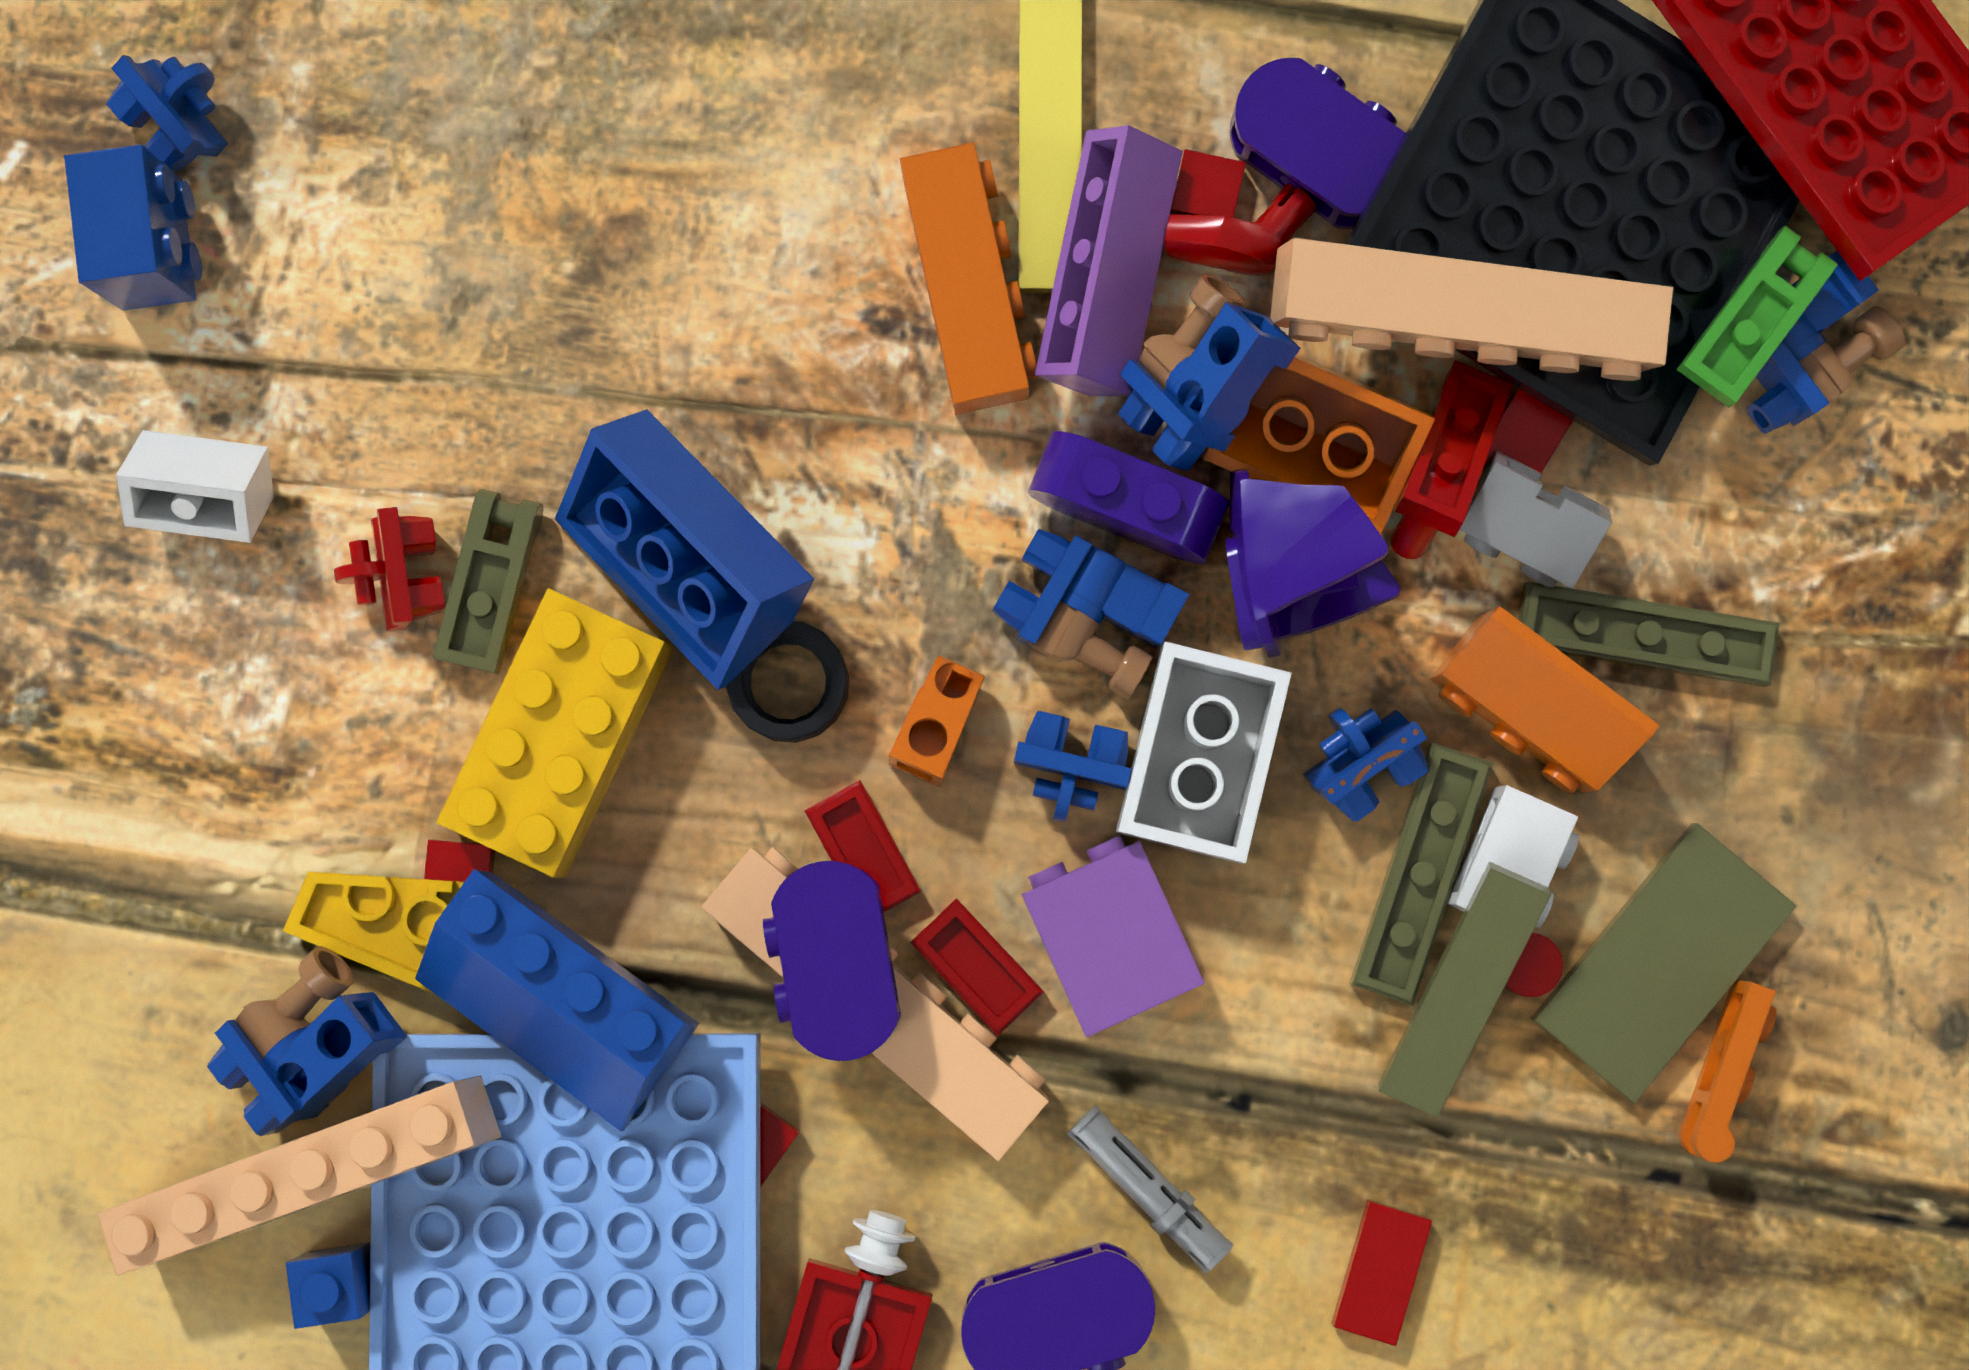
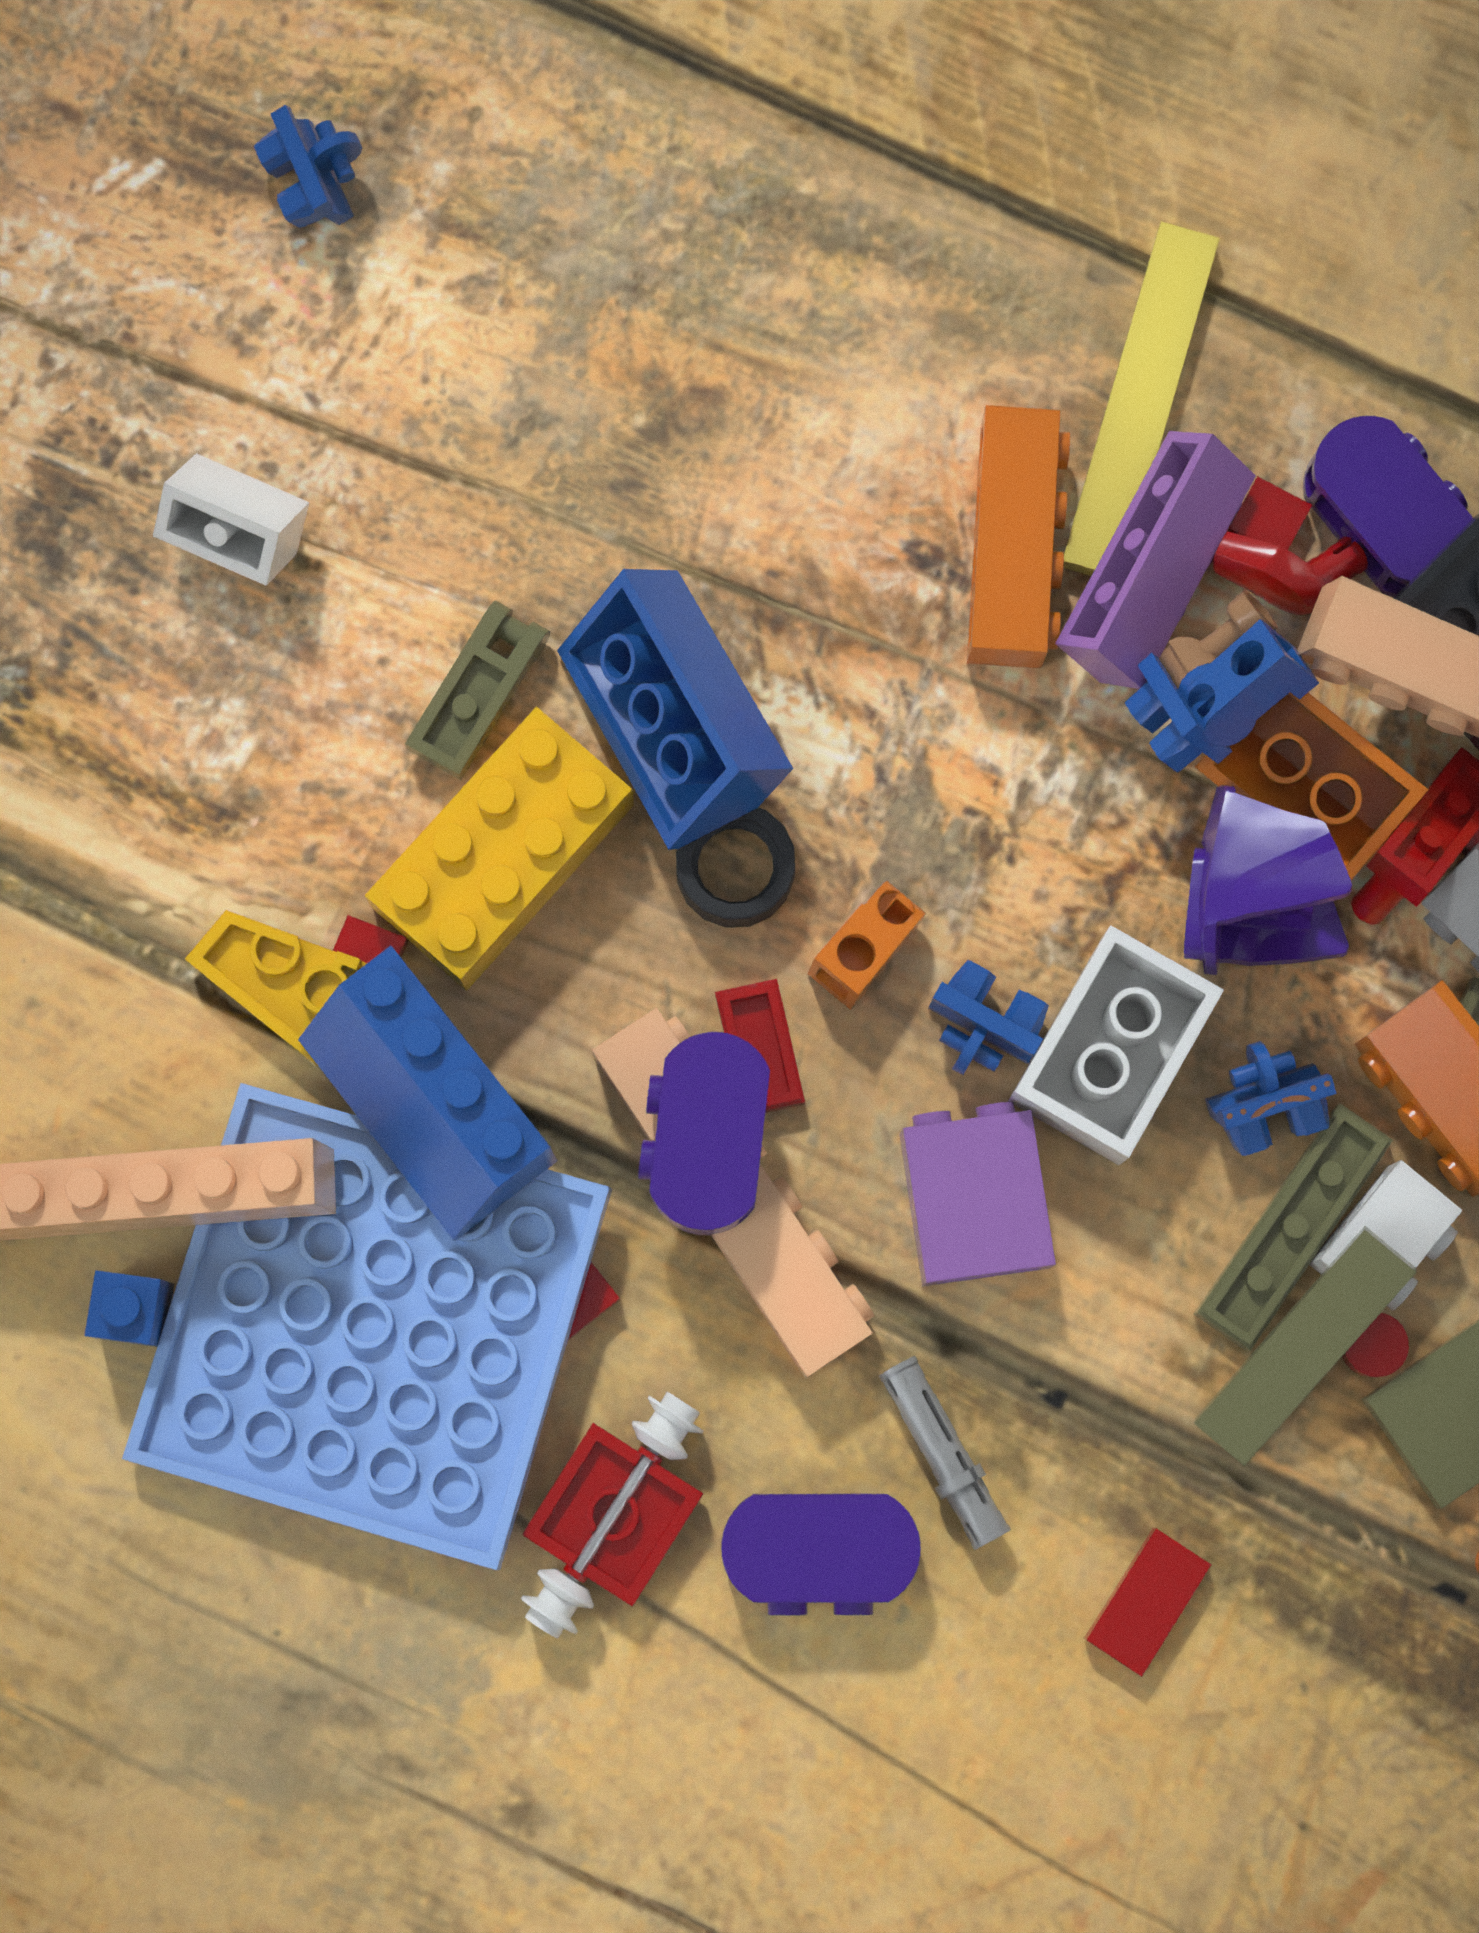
camera: 10 degrees right, 5 degrees down
(132, 228) = (246, 264): blue brick -> none
(301, 1064) = (160, 1085): blue hips -> none
(393, 541) = (399, 625): red hips -> none
(977, 967) = (837, 1190): red tile -> none
(1081, 593) = (1043, 862): blue hips -> none
(1128, 497) = (1112, 783): dark purple brick -> none

